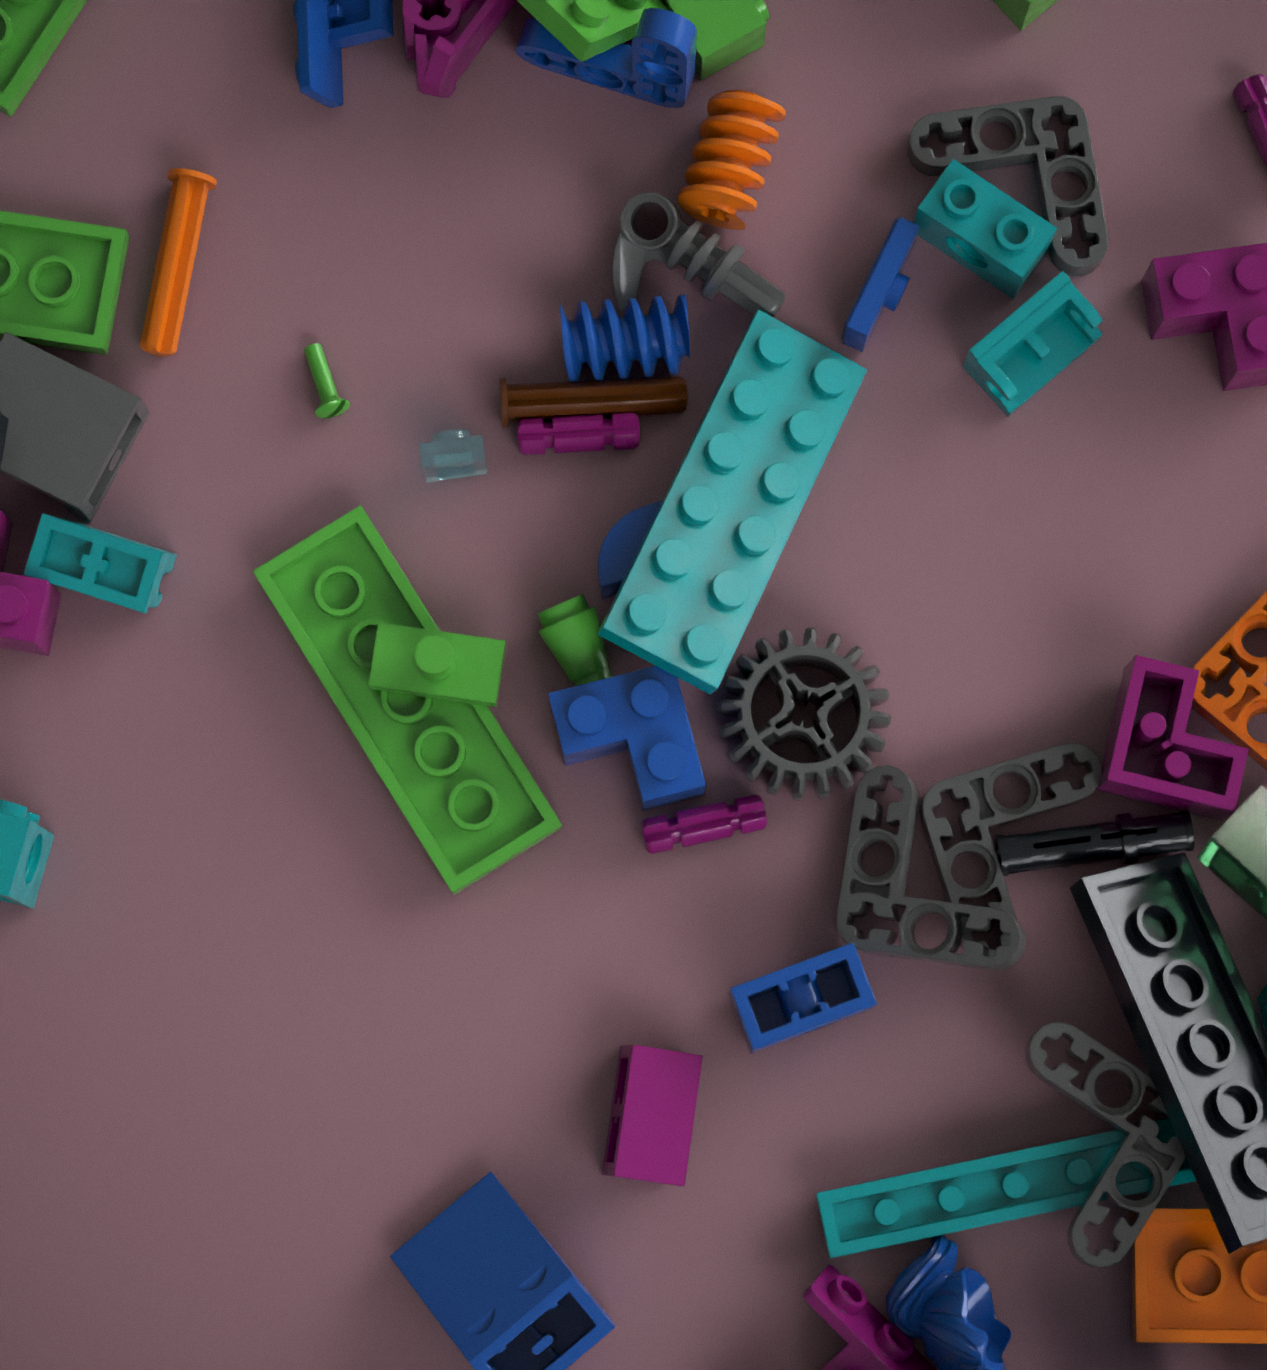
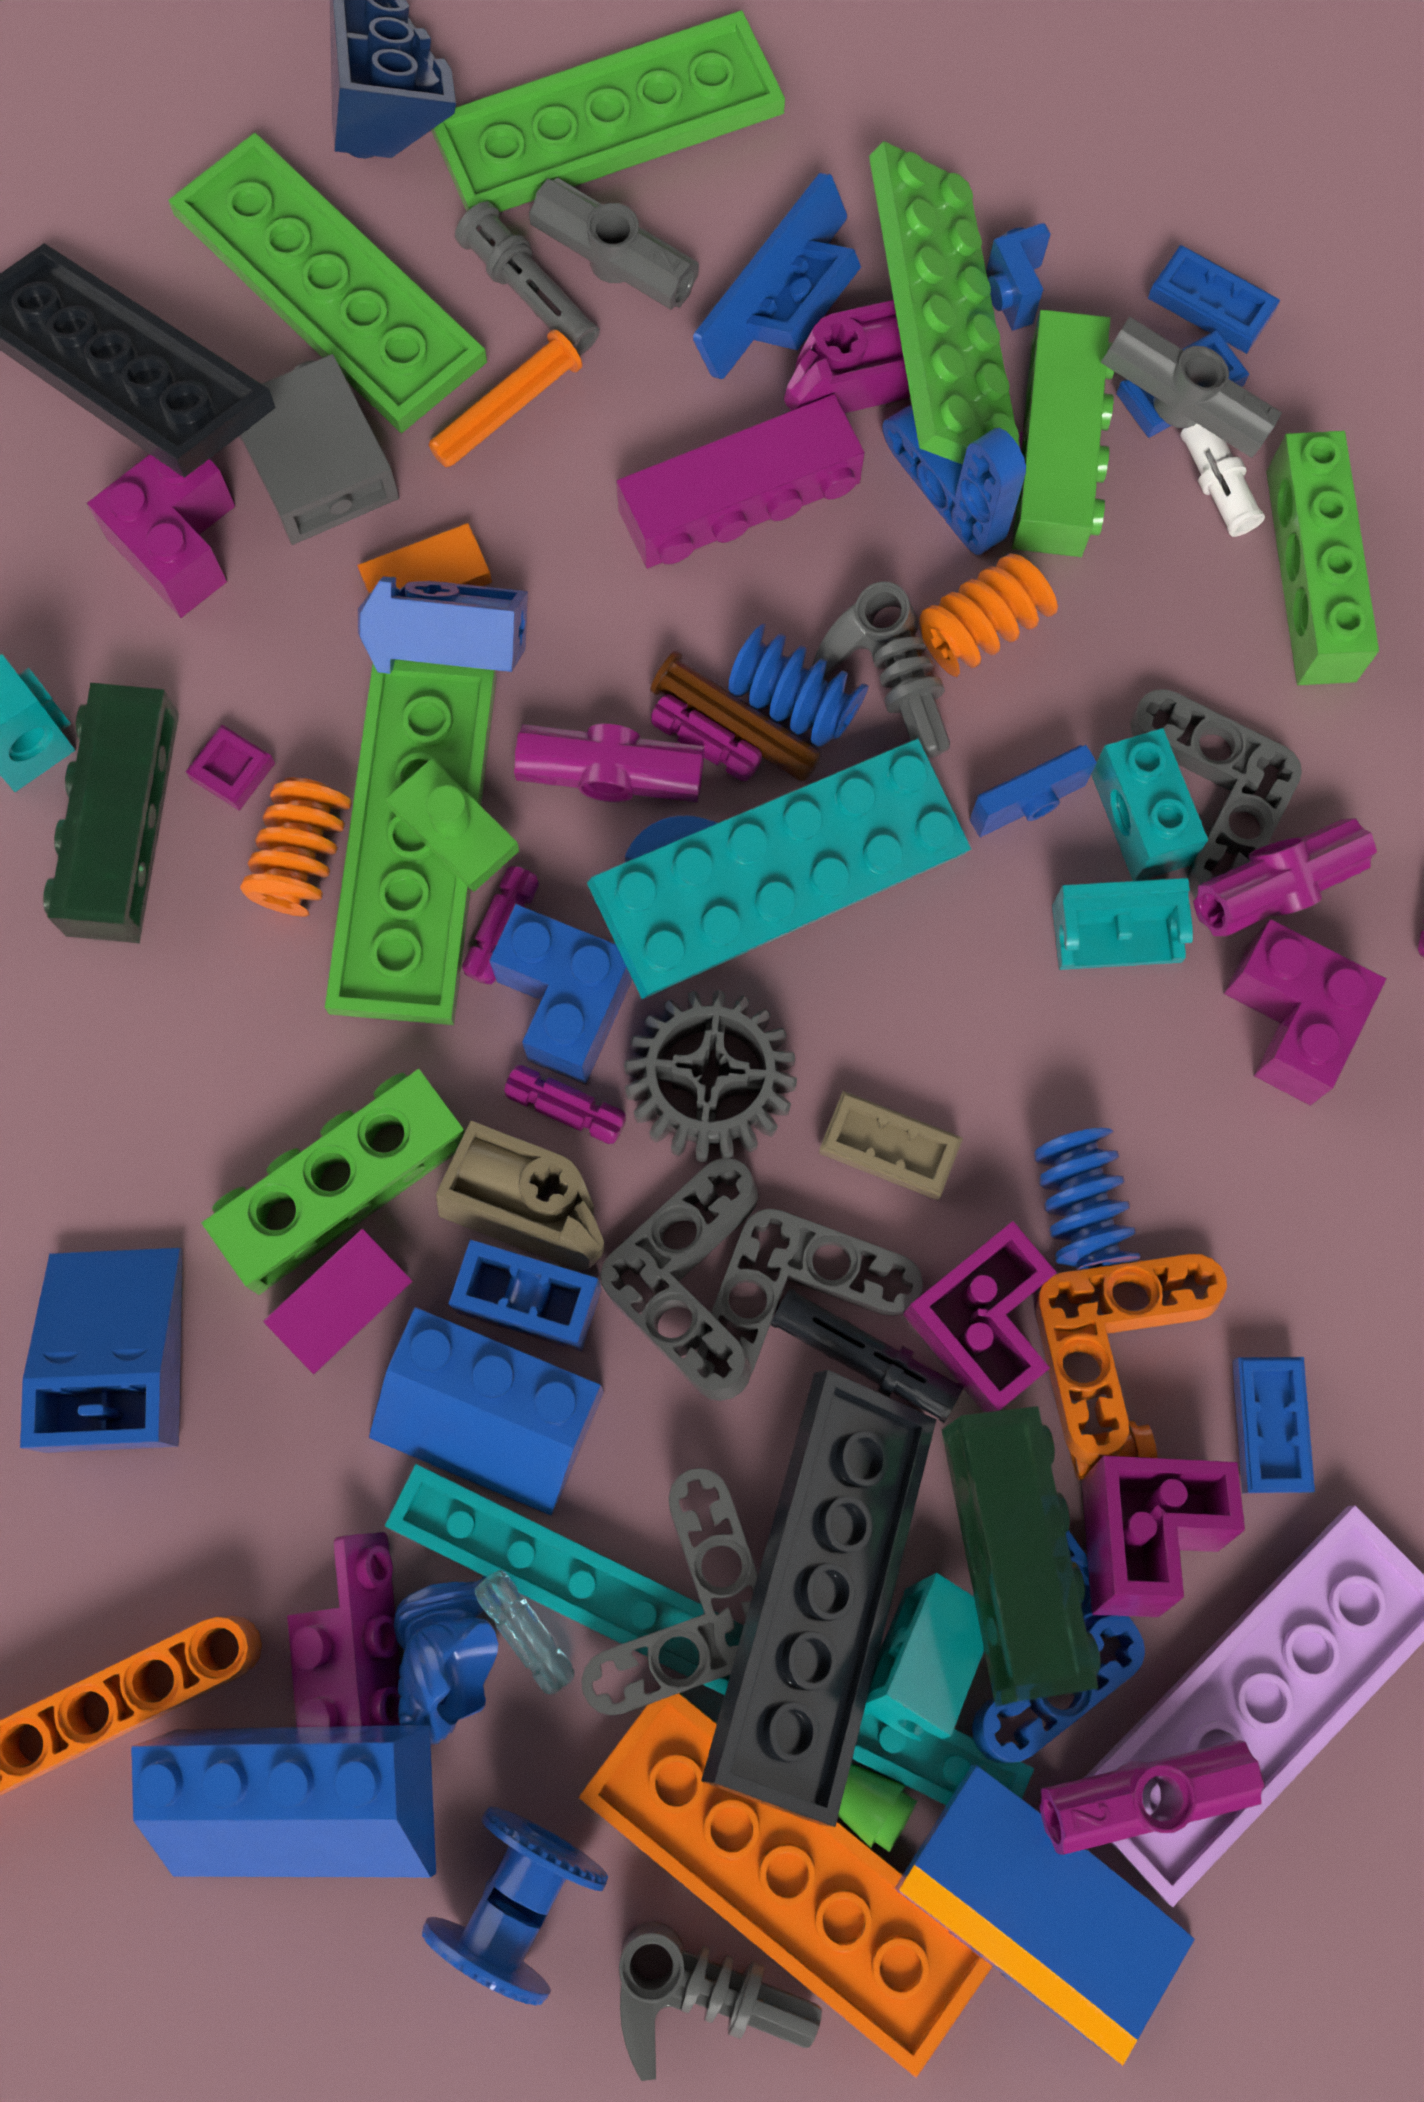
camera: 35 degrees right, 5 degrees down
(79, 123) = (512, 264): none -> dark grey pin
(98, 563) = (265, 569): teal hinge -> none
(119, 50) = (593, 227): none -> dark grey piece
(141, 864) = (112, 813): none -> clear green brick
(201, 752) = (230, 767): none -> magenta tile
(229, 464) = (441, 558): none -> orange tile
(294, 500) = (443, 625): none -> piece
(317, 778) = (292, 844): none -> orange piece
(331, 403) = (536, 582): bright green piece -> none
(437, 190) = (740, 482): none -> magenta brick
(453, 456) = (594, 683): clear light blue plate -> none
(519, 515) = (609, 763): none -> magenta piece
(535, 716) = (517, 888): none -> magenta axle
(572, 638) = (570, 895): bright green cone -> none
(619, 929) = (322, 1216): none -> bright green brick
(714, 935) = (496, 1192): none -> dark tan piece
(837, 1112) = (484, 1411): none -> blue slope
(987, 663) = (890, 1145): none -> dark tan plate
(1000, 1253) = (524, 1632): none -> clear light blue axle
(1135, 211) = (1284, 877): none -> magenta piece
(1173, 593) = (1084, 1200): none -> blue piece

